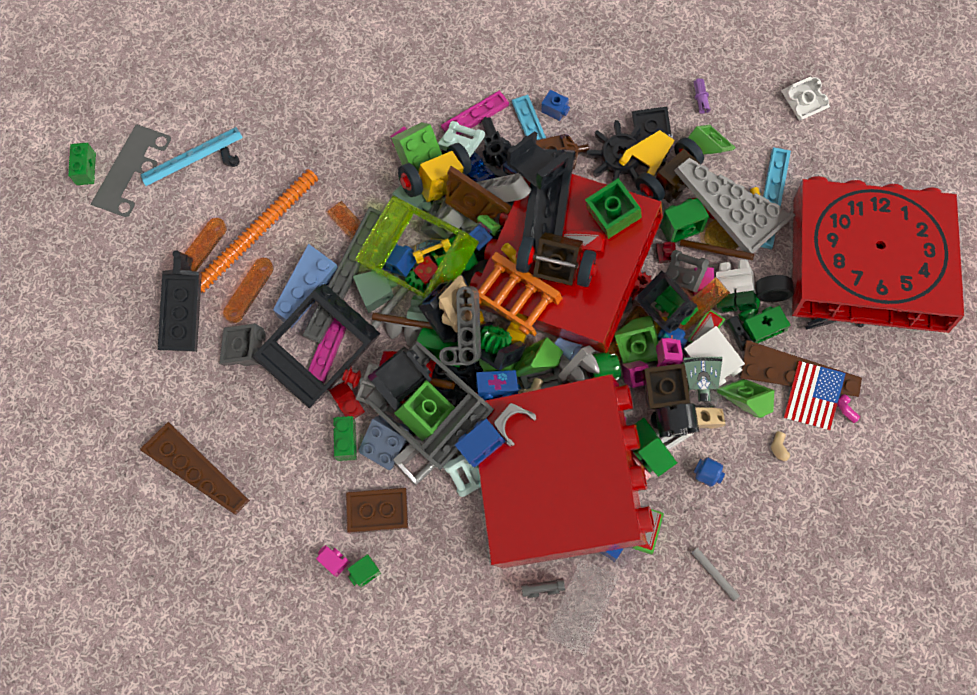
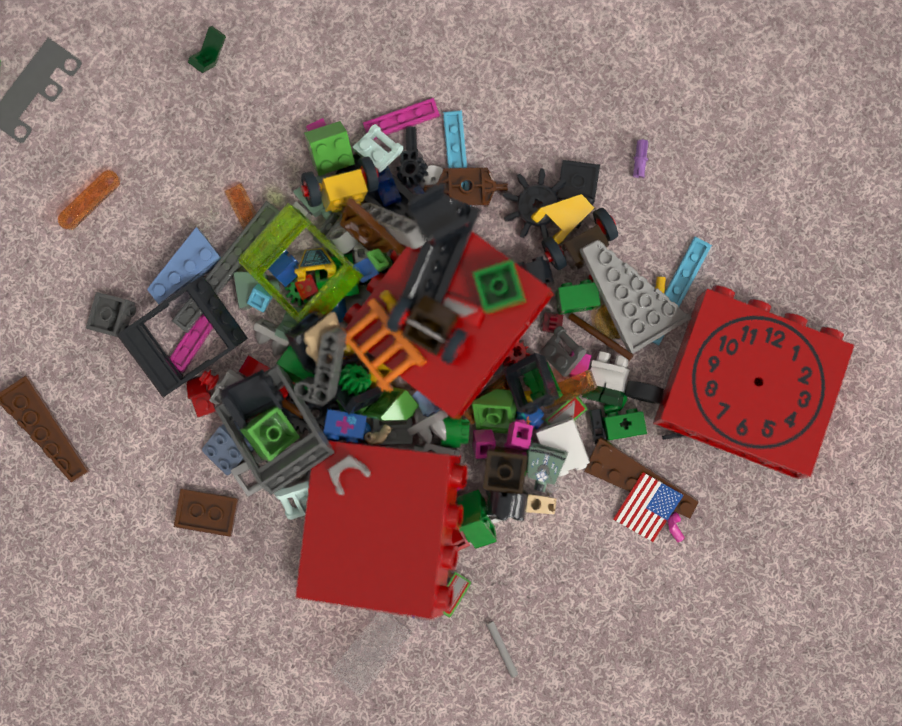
camera: 10 degrees right, 15 degrees up
(179, 306) = (56, 259): black hinge -> none
(190, 156) = (98, 92): medium azure tile -> none
(228, 159) = (134, 104): black arm -> none
(248, 290) = (128, 257): clear orange plate -> none
(251, 234) = (147, 194): orange piece -> none
(288, 96) = (210, 51): none -> dark green bracket
(332, 560) = (154, 549): dark pink brick -> none
(345, 438) = (190, 436): green brick -> none
(363, 571) = (180, 567): green brick -> none
(384, 291) = (259, 298): none -> medium azure slope
(390, 306) = (258, 315): light grey bar -> none
(400, 320) = (265, 331): reddish brown bar -> none
(479, 442) = (311, 483): blue brick -> none
(551, 587) = (339, 624): dark grey plate -> none
(555, 105) = (486, 131): blue brick -> none
(709, 471) = (524, 555): blue head -> none
(710, 140) = (632, 215): bright green slope -> none
(749, 397) = (584, 494): bright green slope -> none
(778, 448) = (597, 547): tan arm -> none
(806, 97) = (747, 189): white slope -> none

